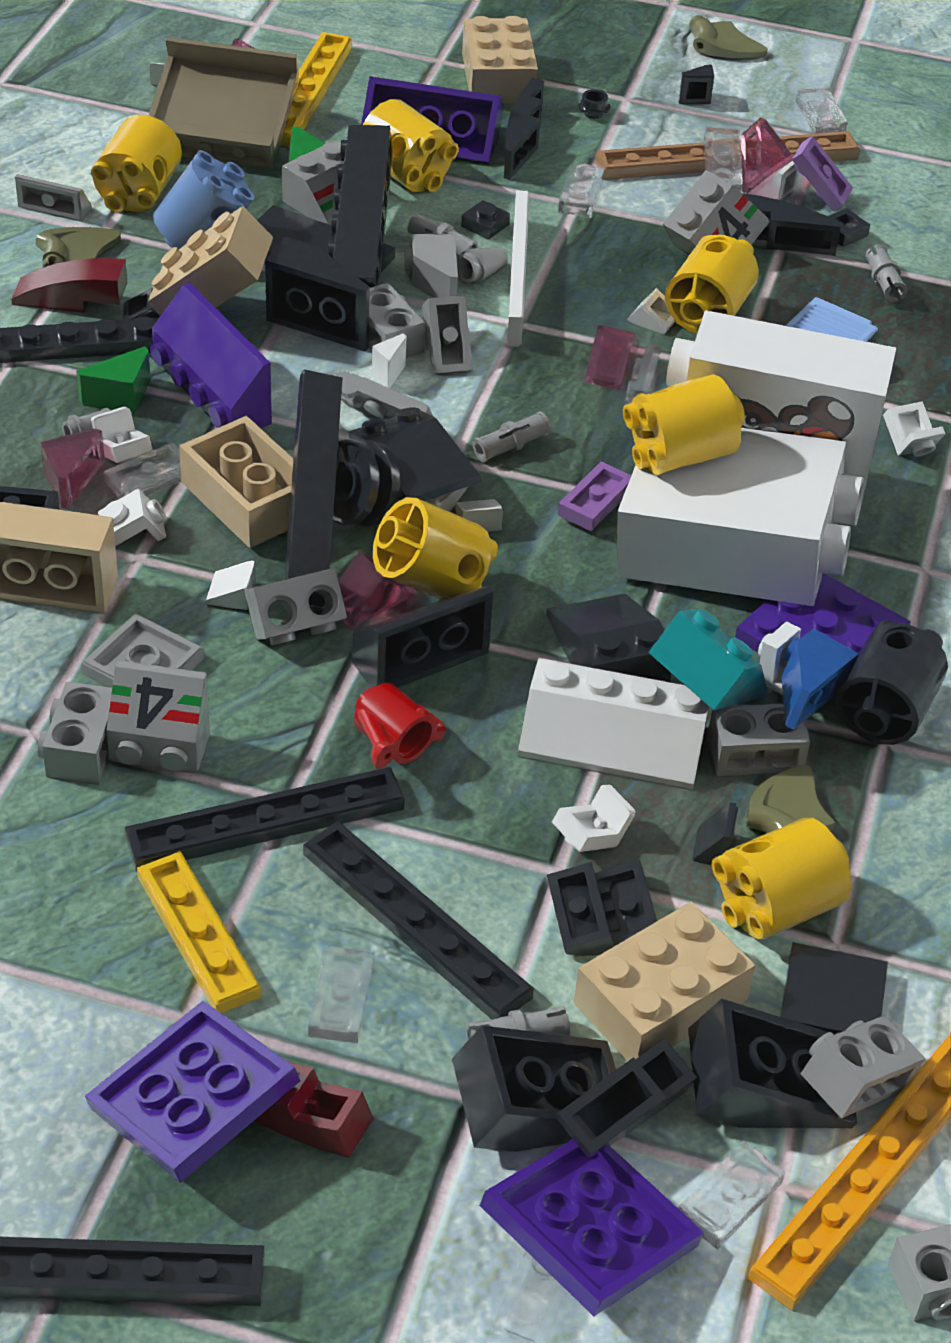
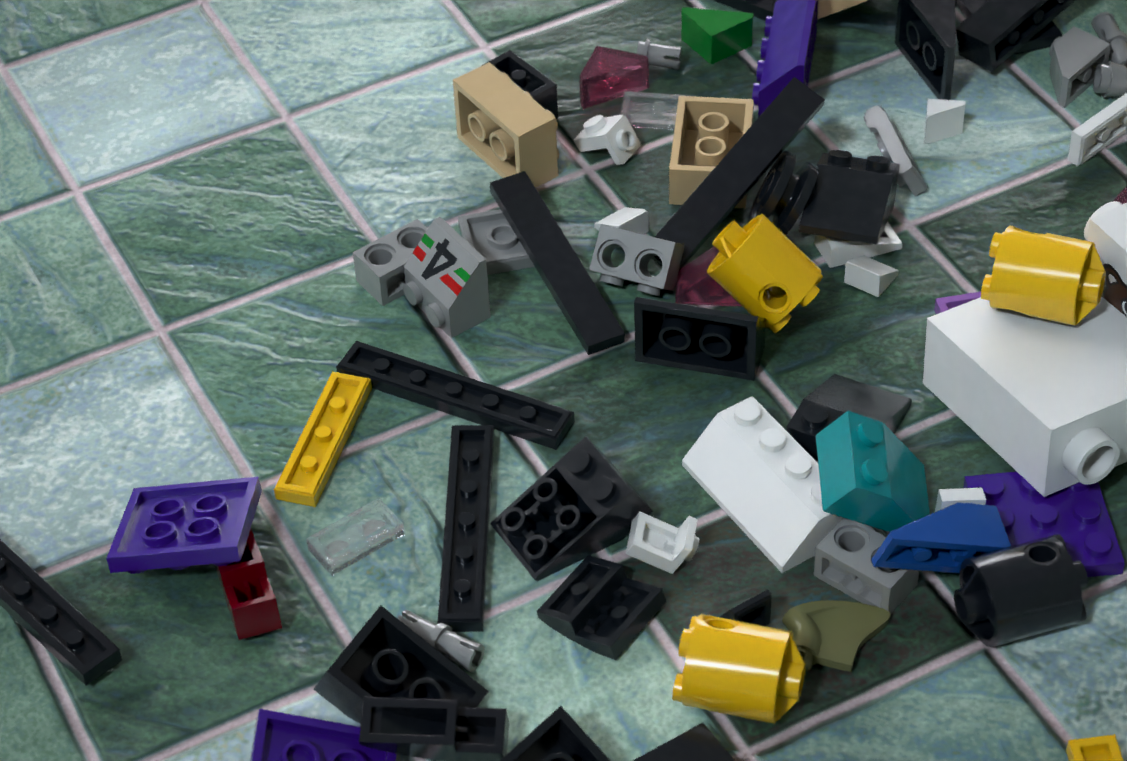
camera: 50 degrees right, 0 degrees up
(120, 437) = (667, 71): white bracket -> none
(223, 648) = (557, 263): none -> black tile
(393, 316) = (978, 82): light grey brick -> none
(395, 725) = (603, 385): red piece -> none
(447, 334) = (1013, 122): light grey slope -> none
(494, 848) = (570, 512): none -> black slope
(511, 436) = (965, 229): light grey pin -> none
(662, 981) = (577, 668): tan brick -> none

